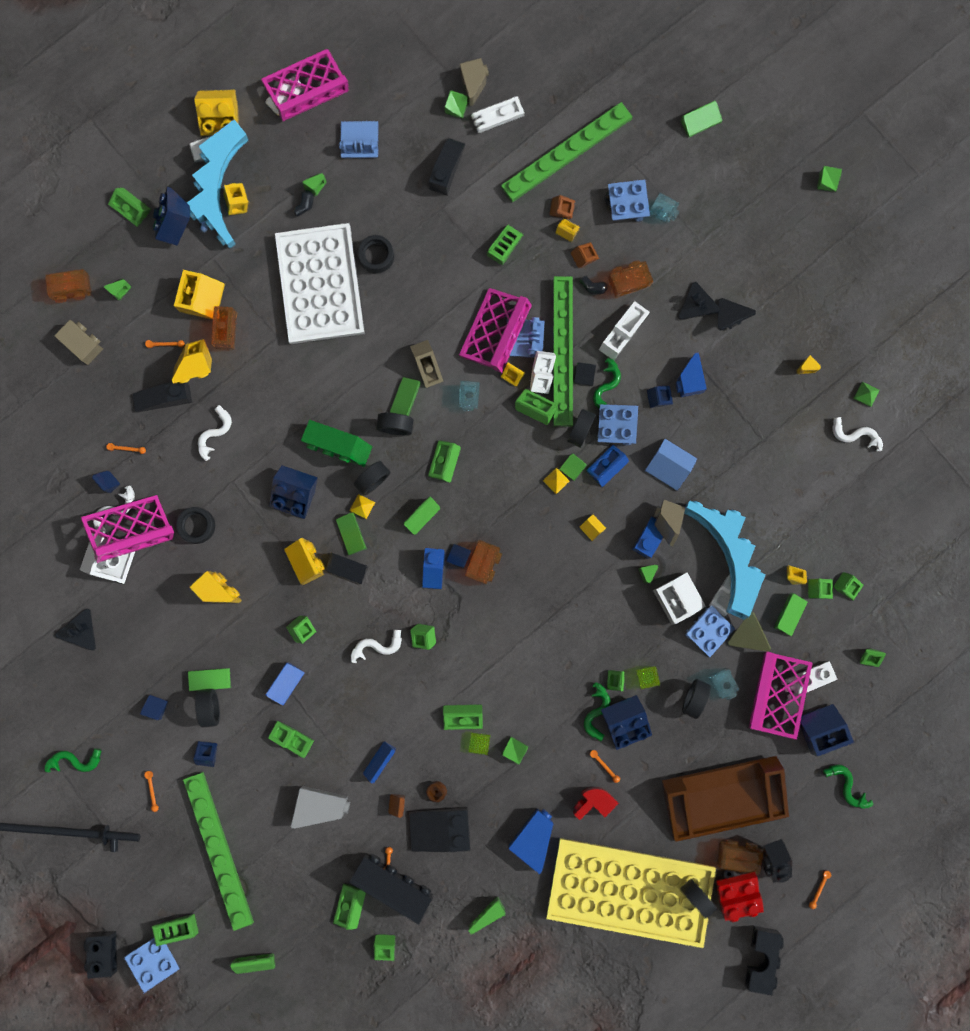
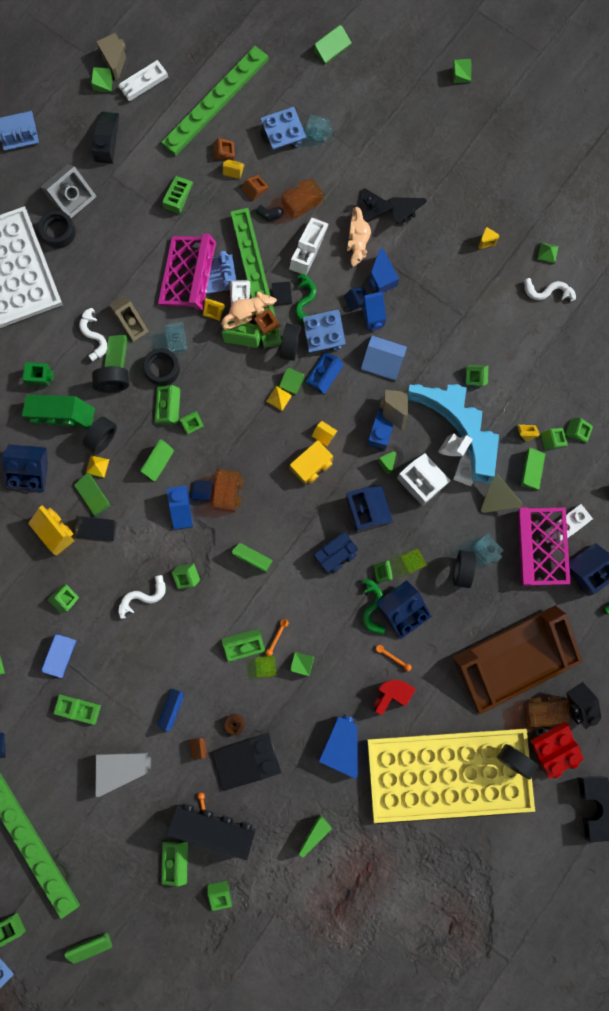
camera: 20 degrees left, 5 degrees down
(320, 395) = (33, 370): none -> green brick
(393, 388) = (101, 350): none -> white animal
(396, 216) = (68, 190): none -> light grey slope
(447, 407) = (158, 353): none -> black tyre
(464, 485) = (191, 422): none -> bright green slope
(492, 634) = (252, 557): none -> bright green slope
(507, 706) = (284, 623): none -> orange hinge
(543, 384) = (244, 309): none -> light nougat animal
(563, 402) = (267, 321): none -> dark orange slope
(573, 554) = (311, 463): none -> yellow brick
(574, 650) = (335, 553): none -> dark blue brick
(617, 615) = (368, 508): none -> dark blue slope
(673, 417) = (374, 311): none -> blue slope
(678, 332) = (359, 236): none -> light nougat animal
(709, 631) = (460, 503): medium blue hinge -> none
(718, 573) = (454, 445): none -> white slope
(760, 505) = (477, 375): none -> bright green slope

